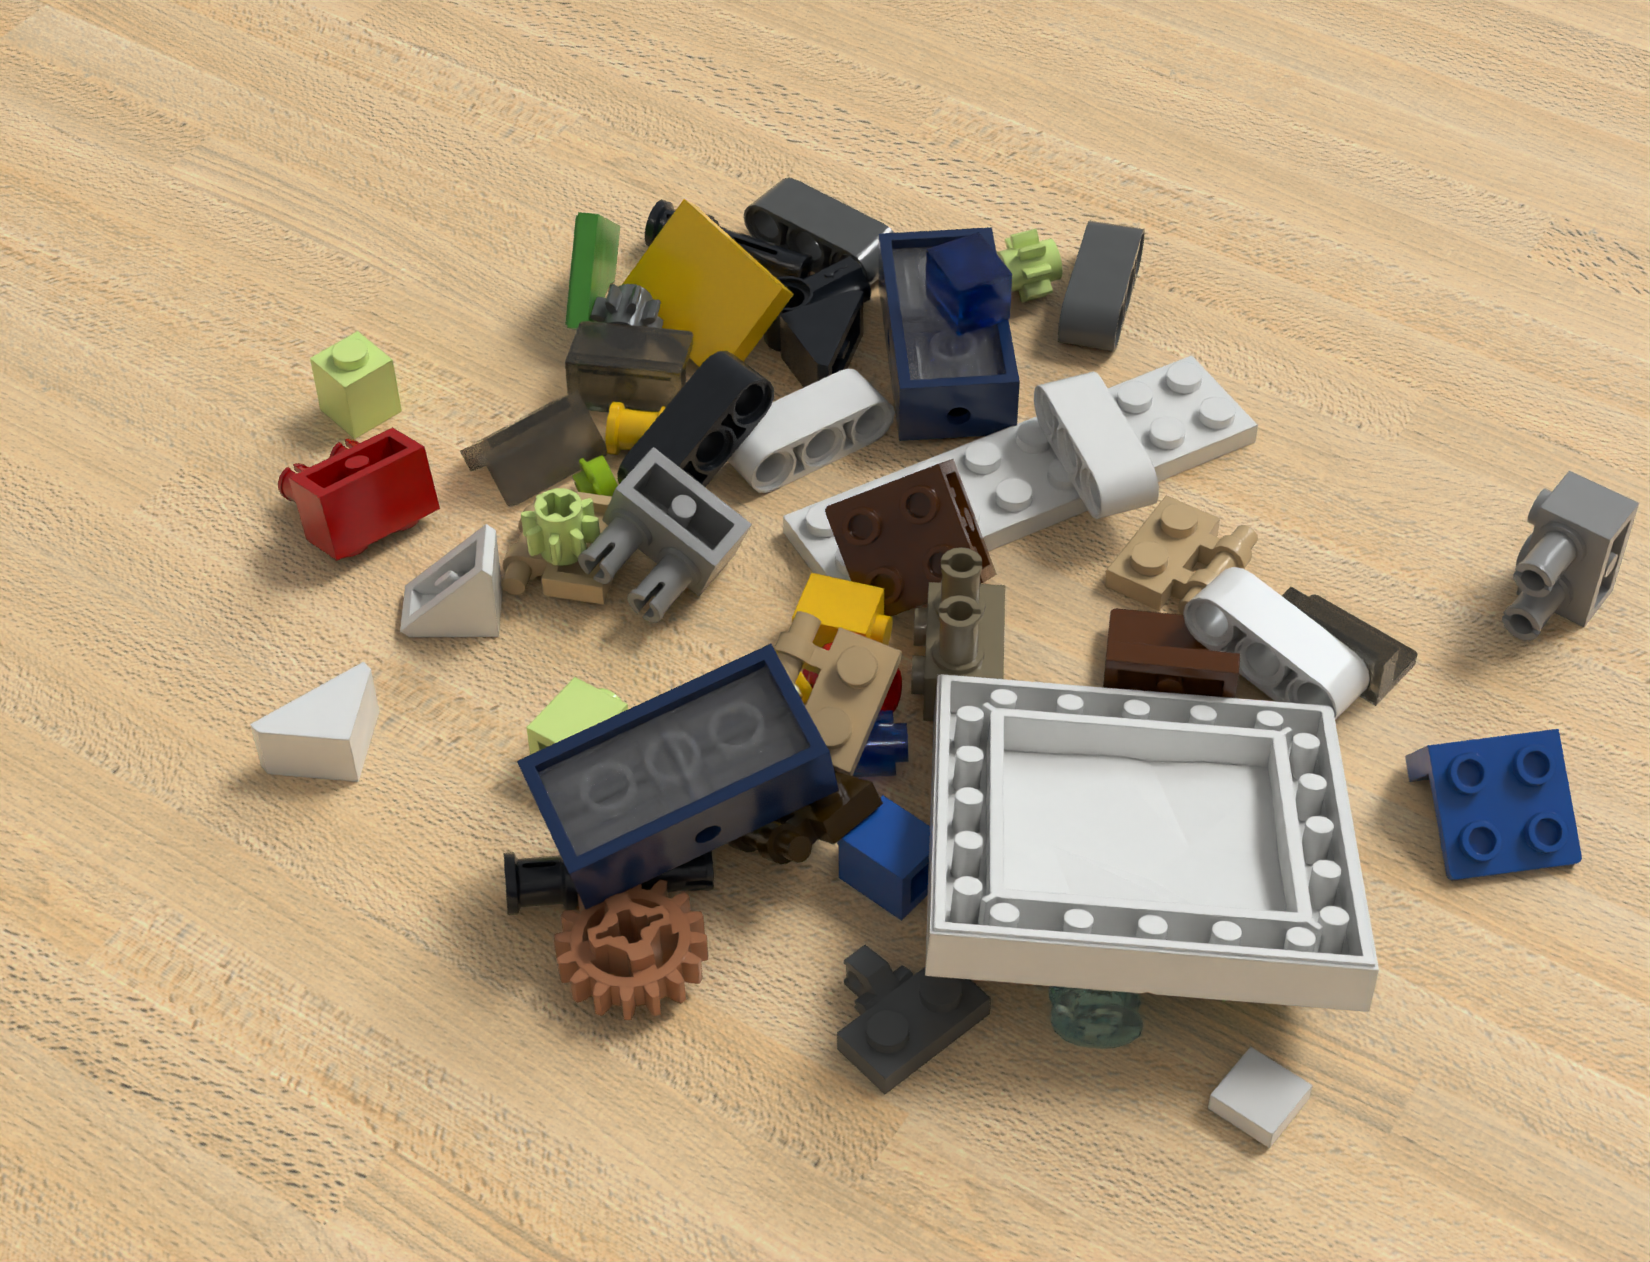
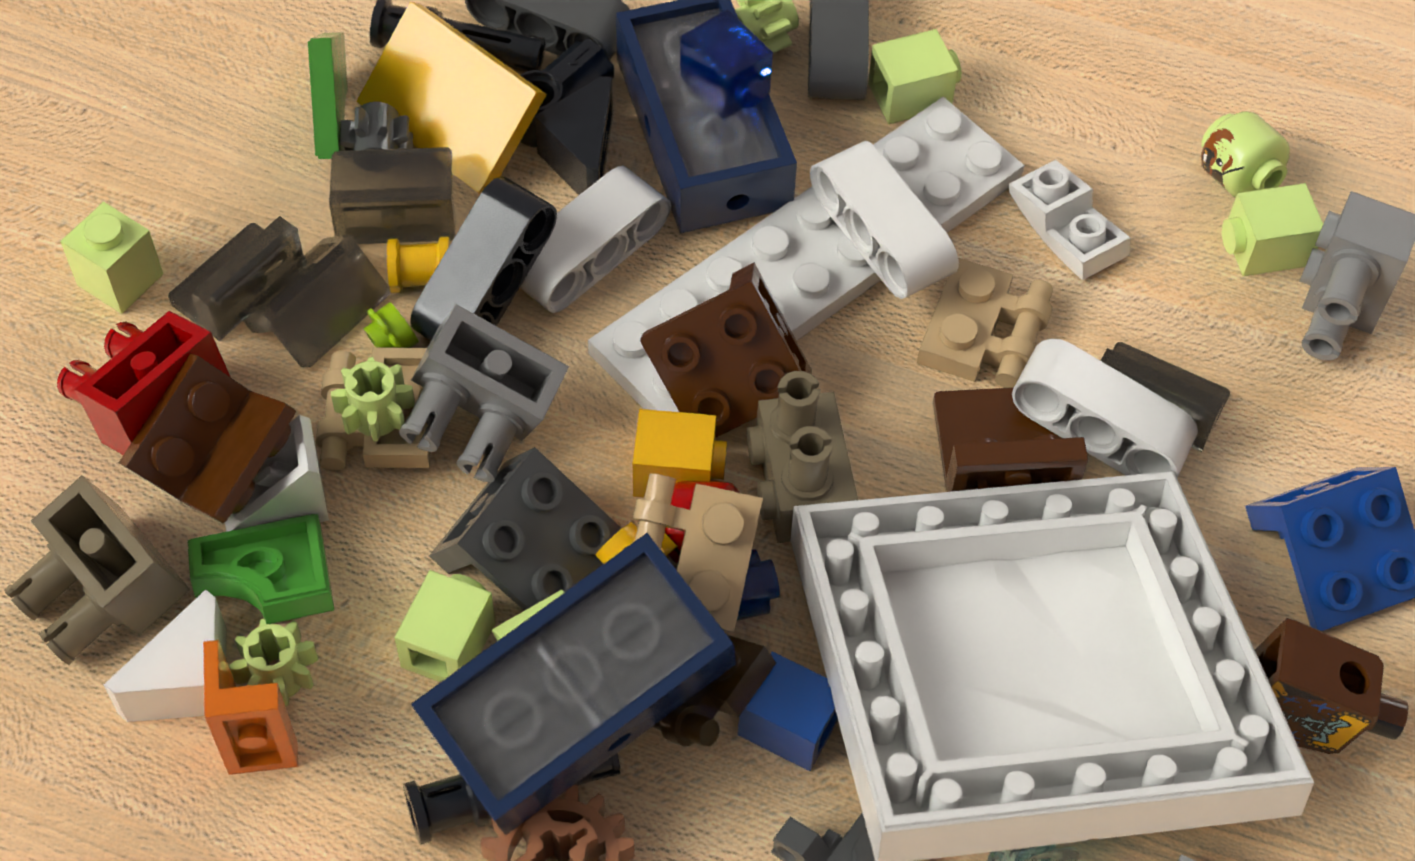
camera: 15 degrees left, 10 degrees up
(283, 627) = (111, 558): none -> dark tan brick
(371, 773) = (246, 721): none -> orange panel
(397, 538) = (208, 439): none -> reddish brown bracket
(412, 738) = (273, 643): none -> yellowish green gear
(428, 659) = (269, 565): none -> bright green tile
(471, 417) = (237, 275): none -> clear smoke panel
(670, 651) = (528, 531): none -> dark grey bracket
(1165, 329) = (912, 74): none -> yellowish green brick
(1289, 480) = (1063, 216): none -> white slope
(1431, 918) = (1328, 688): none -> reddish brown torso
(1488, 444) = (1244, 153): none -> yellowish green head
(1493, 512) = (1272, 229): none -> yellowish green brick

